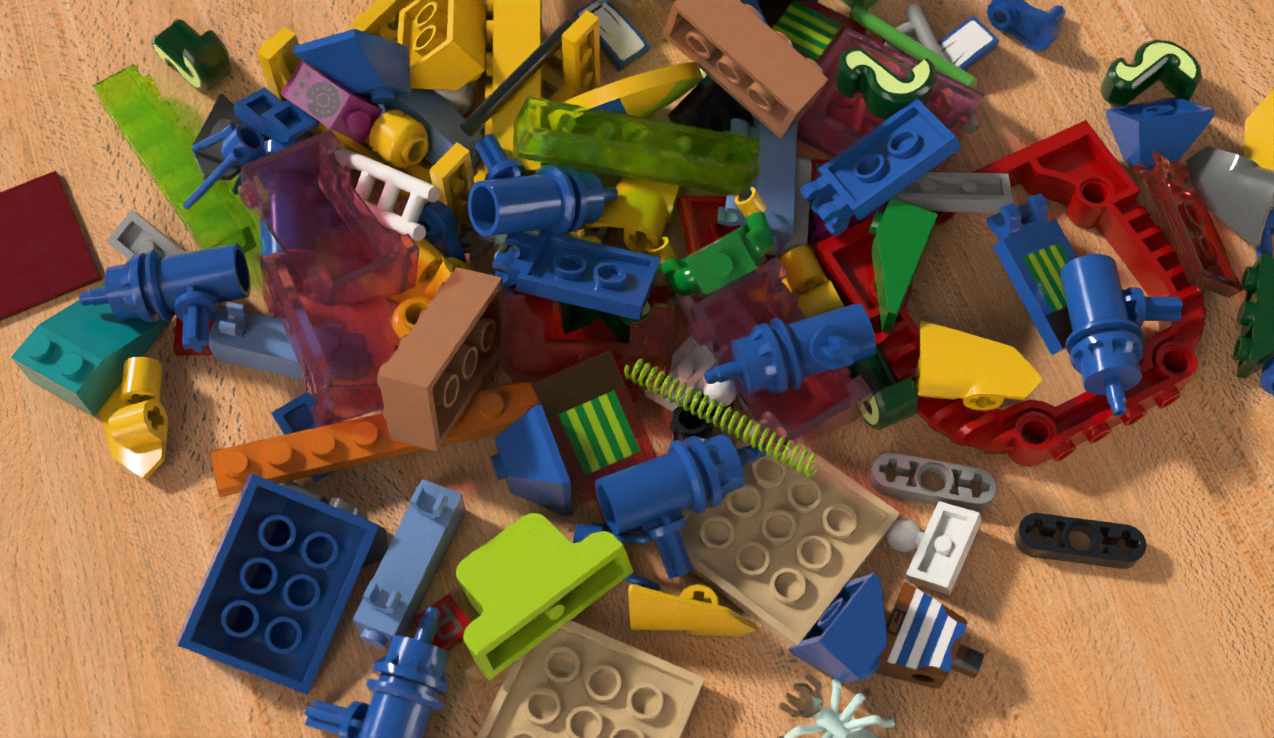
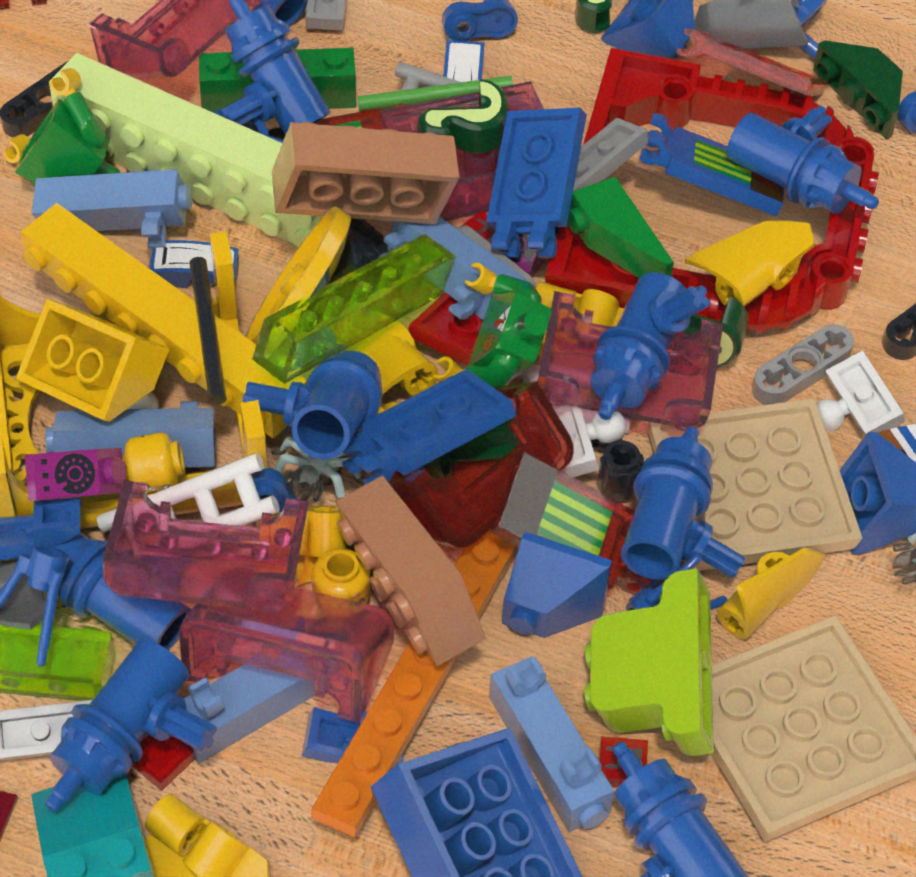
camera: 50 degrees left, 10 degrees down
(361, 63) = (74, 420): blue slope -> none
(674, 386) = (605, 433): lime piece -> none

